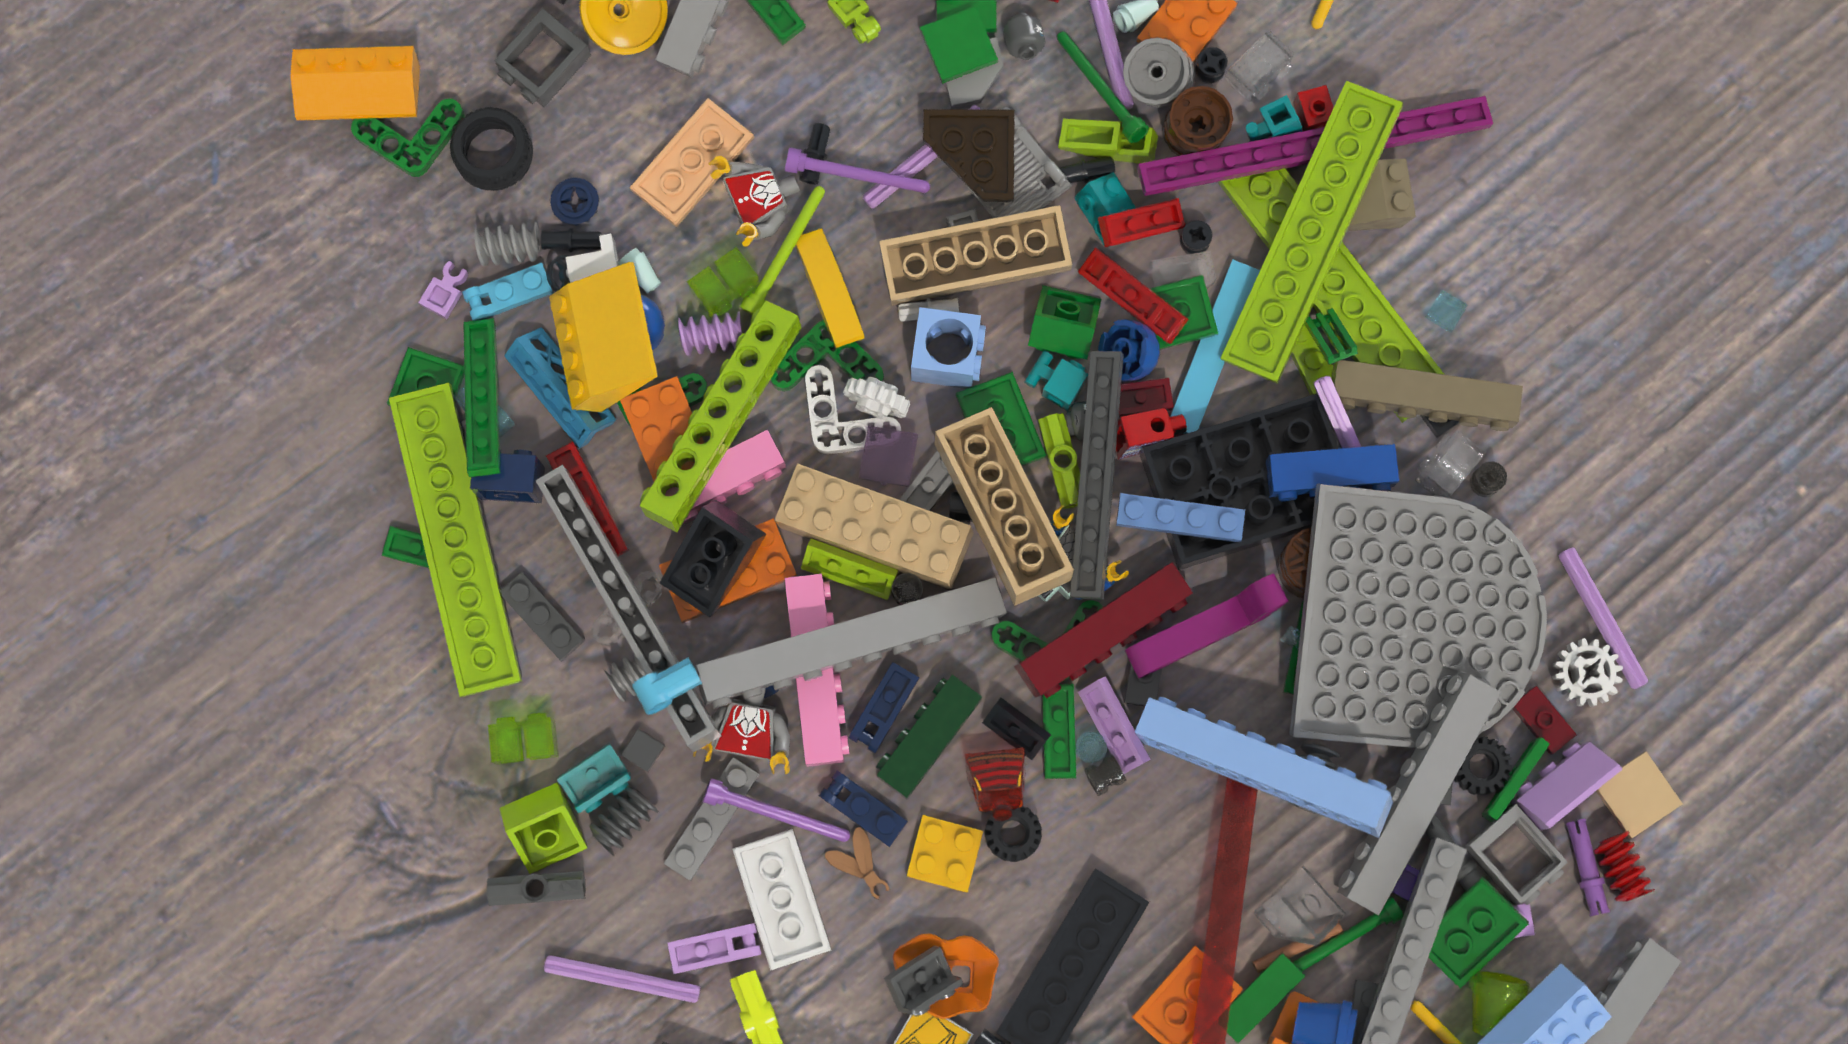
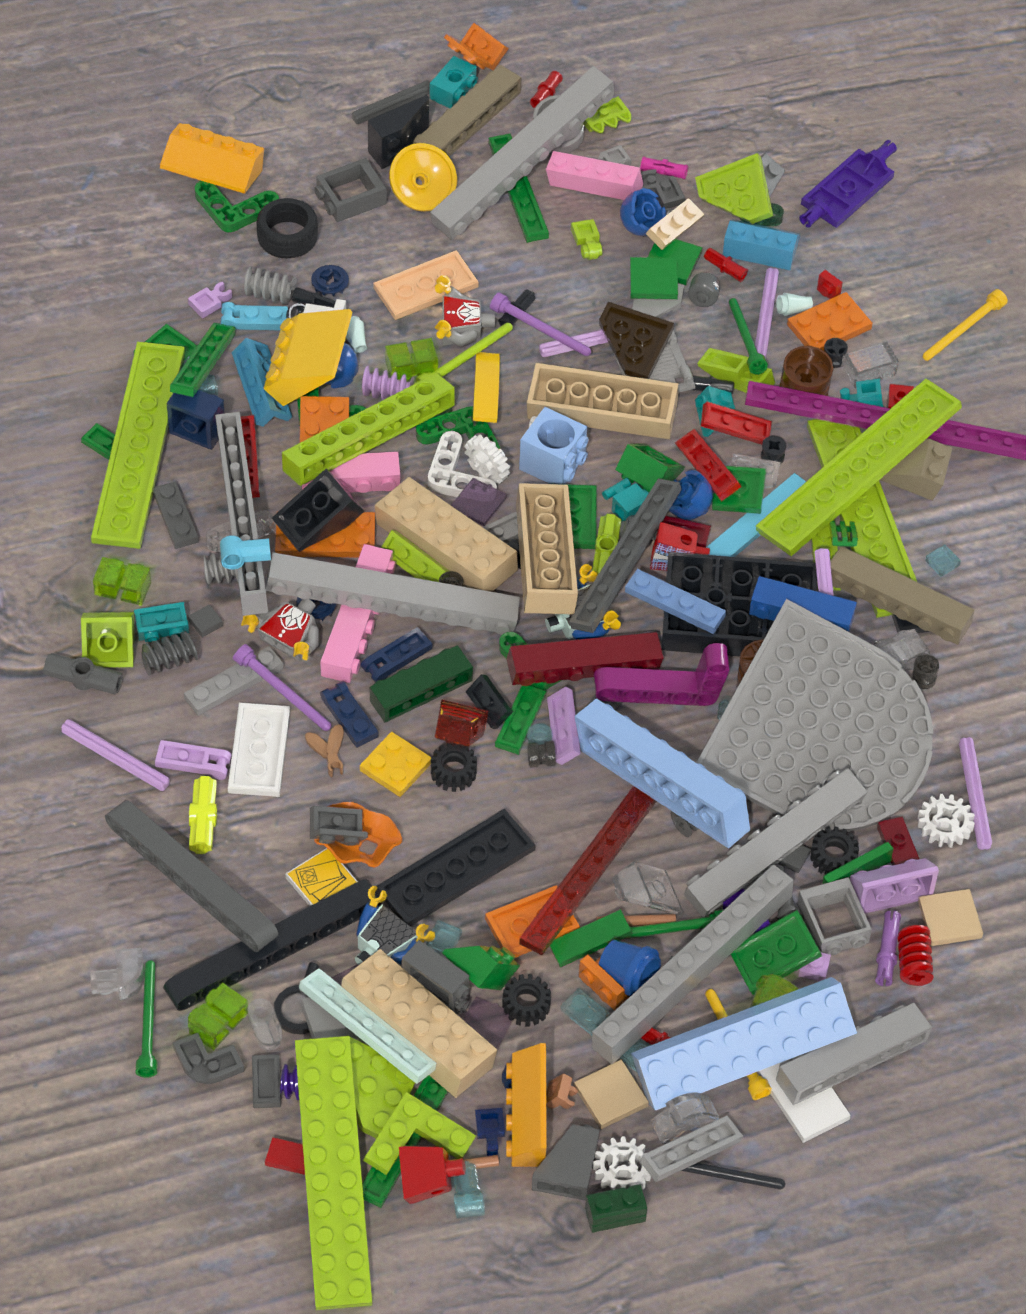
camera: 20 degrees right, 25 degrees down
(1152, 55) = (787, 331): light grey wheel -> none

